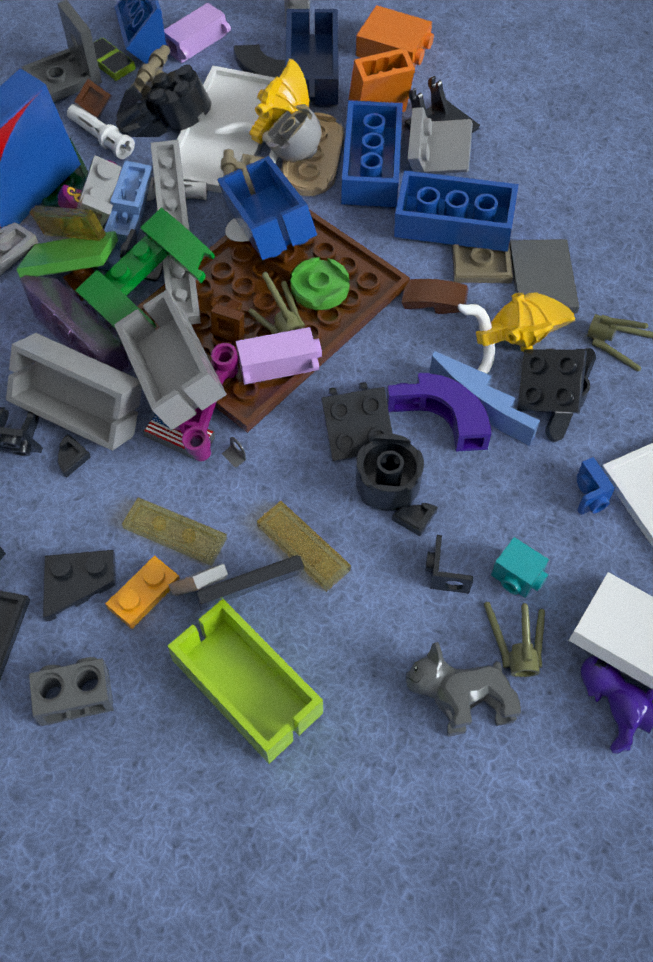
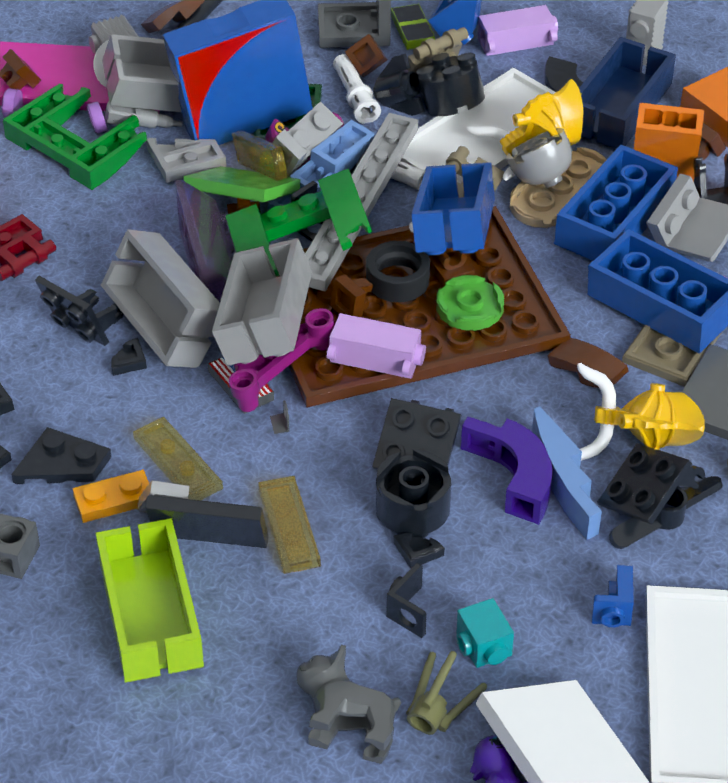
camera: 30 degrees right, 15 degrees down
(247, 263) = (397, 288): none -> black tyre
(285, 319) = (407, 315): olive plant -> none

